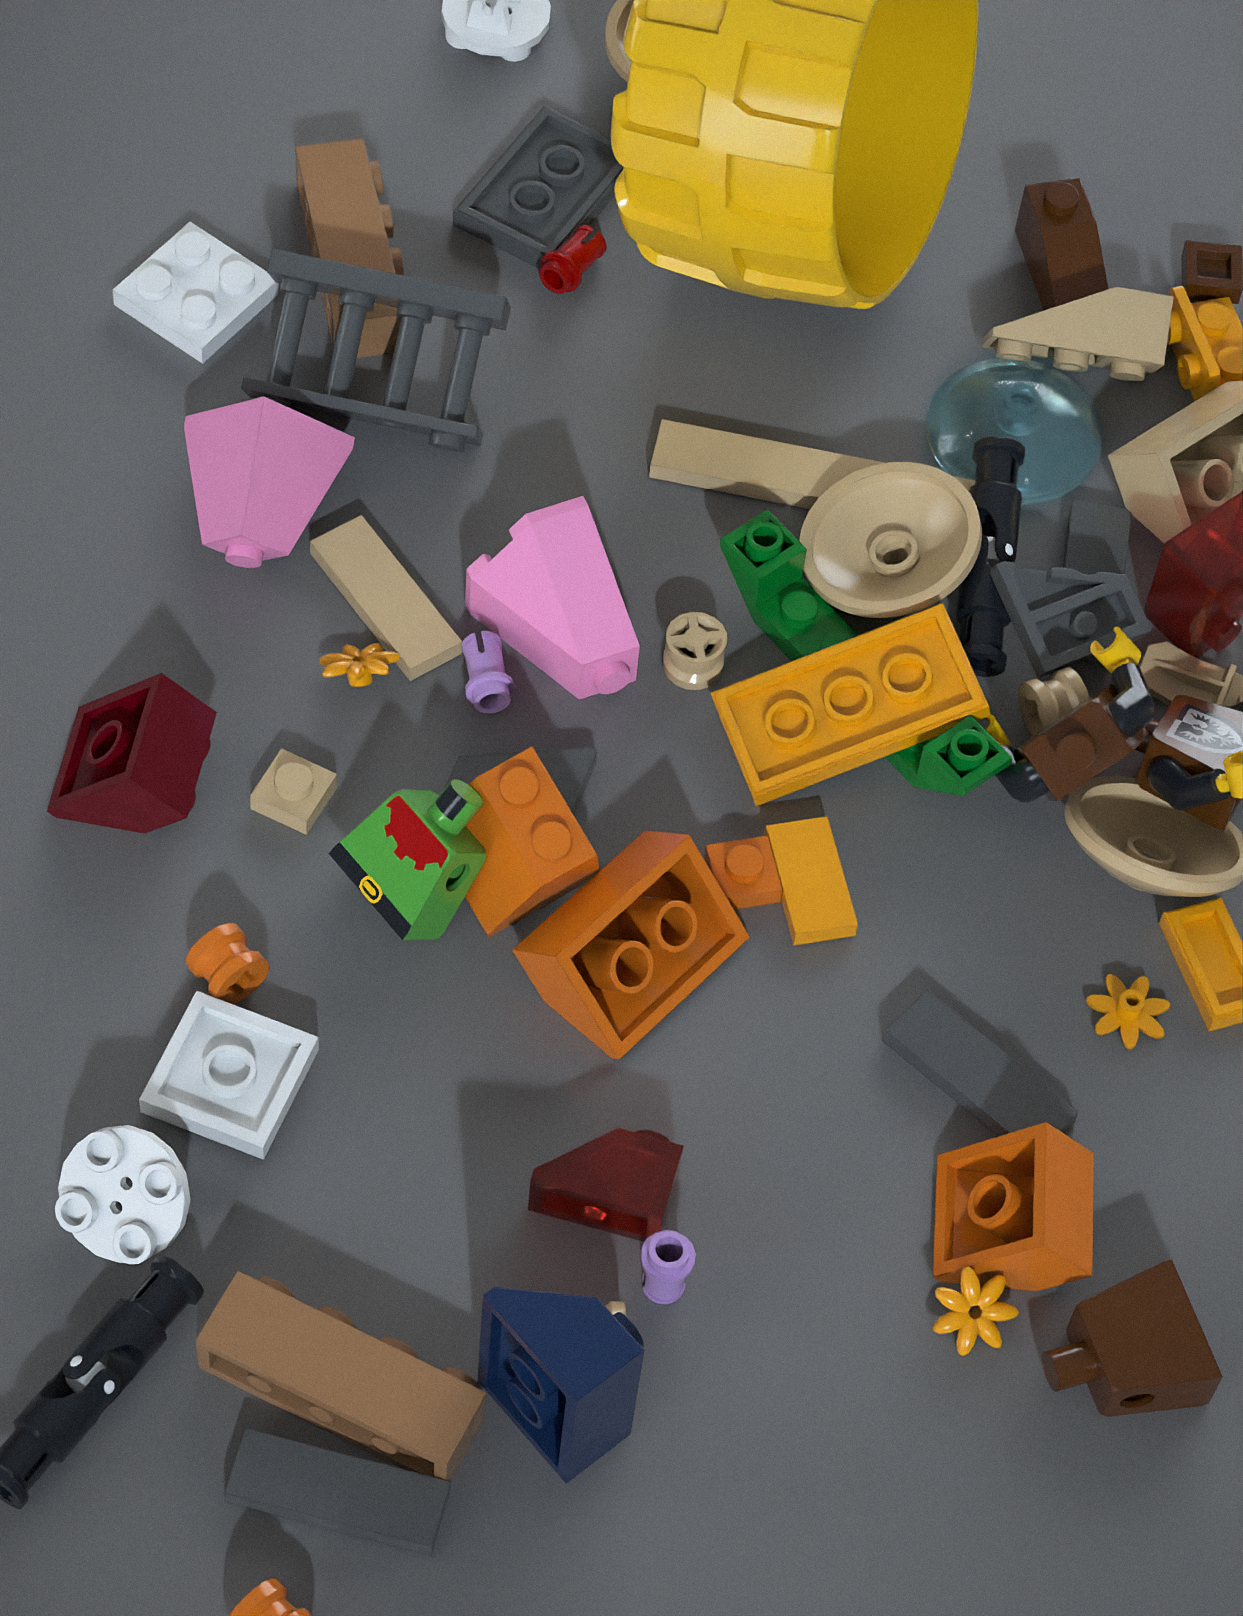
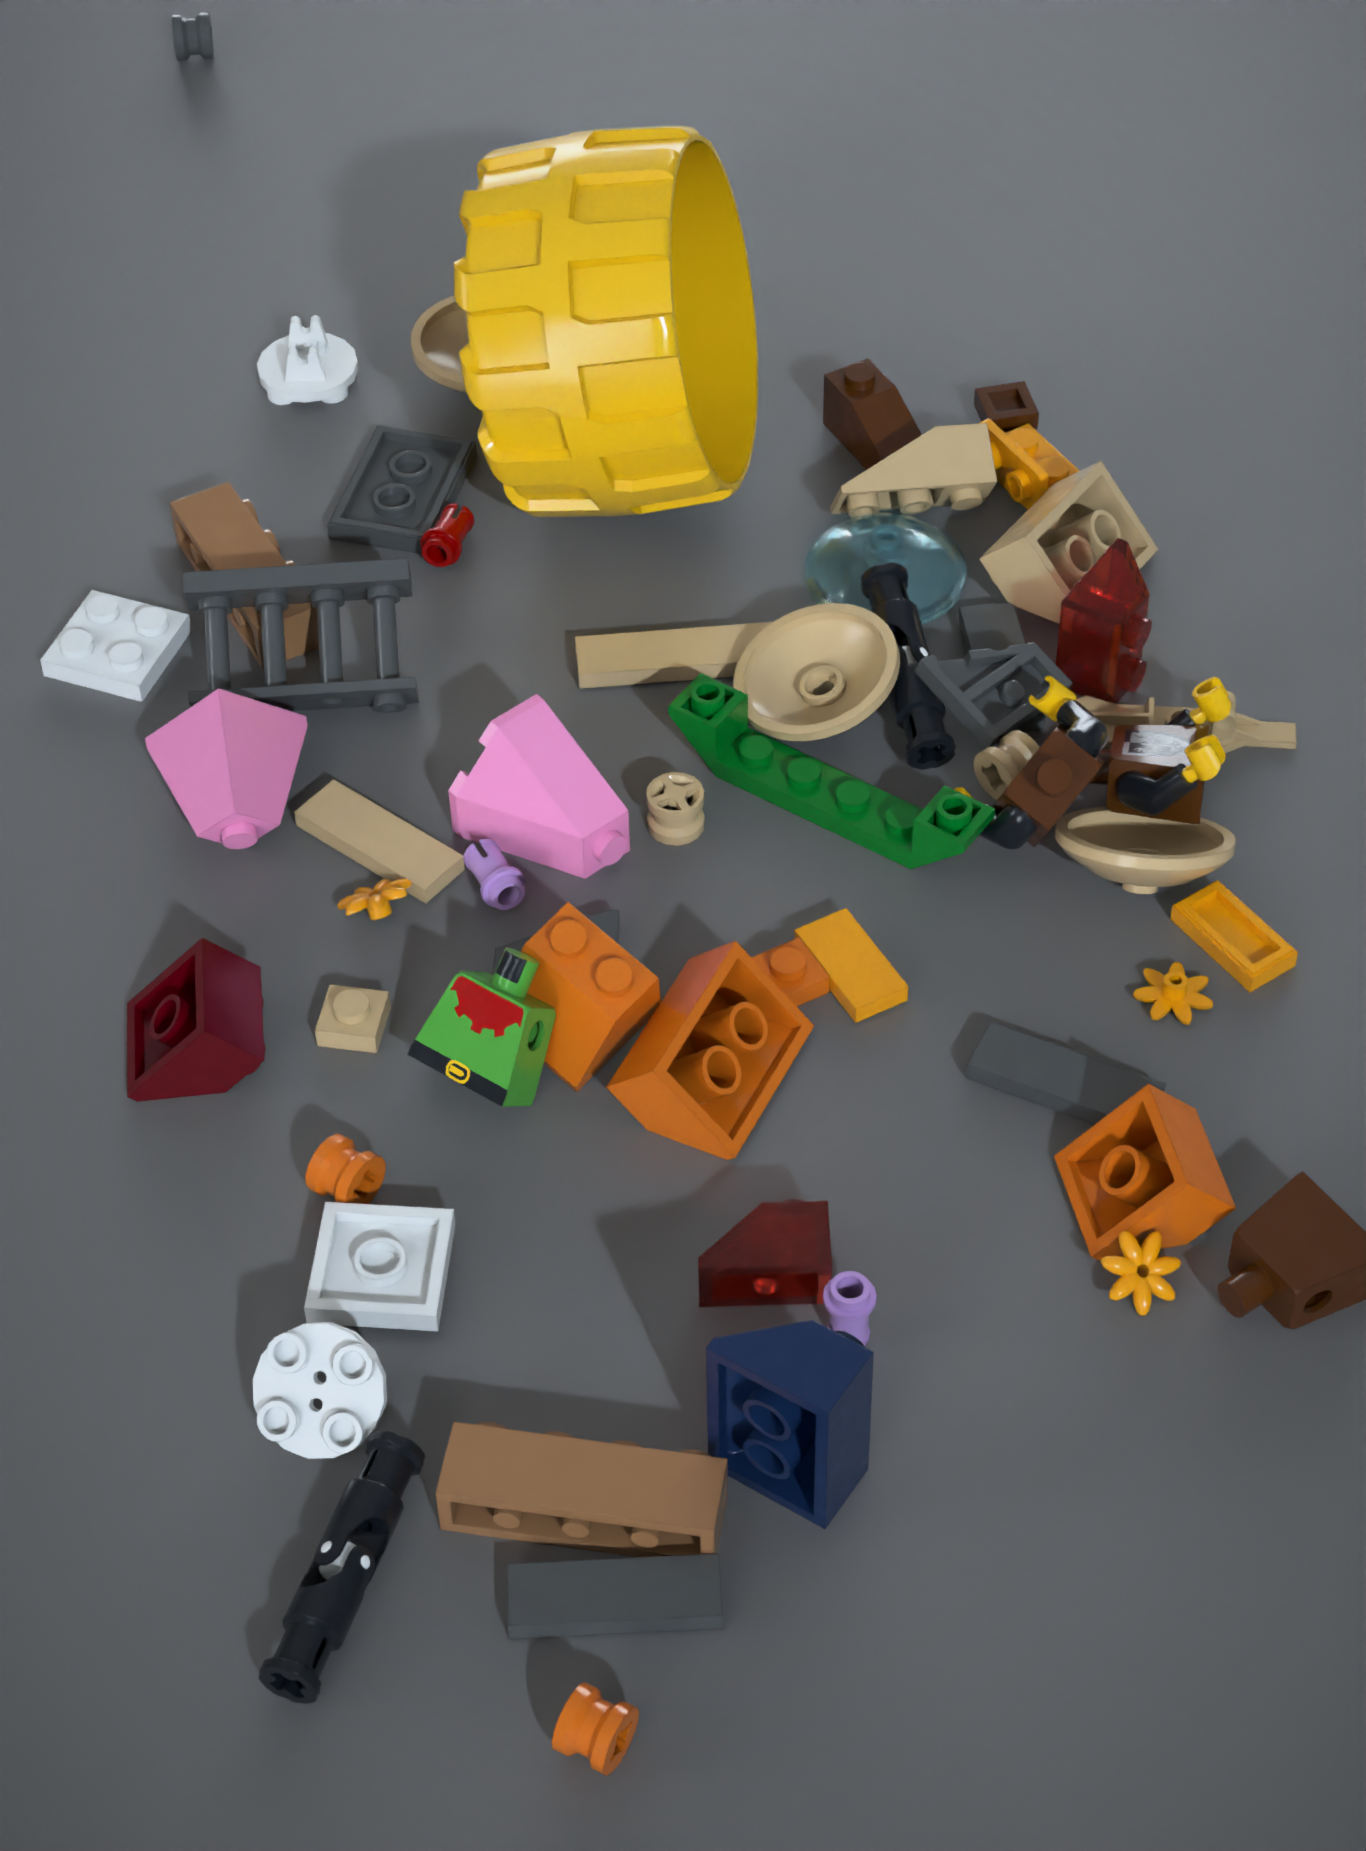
camera: 10 degrees left, 10 degrees down
(849, 704) = (830, 811): light orange tile -> none

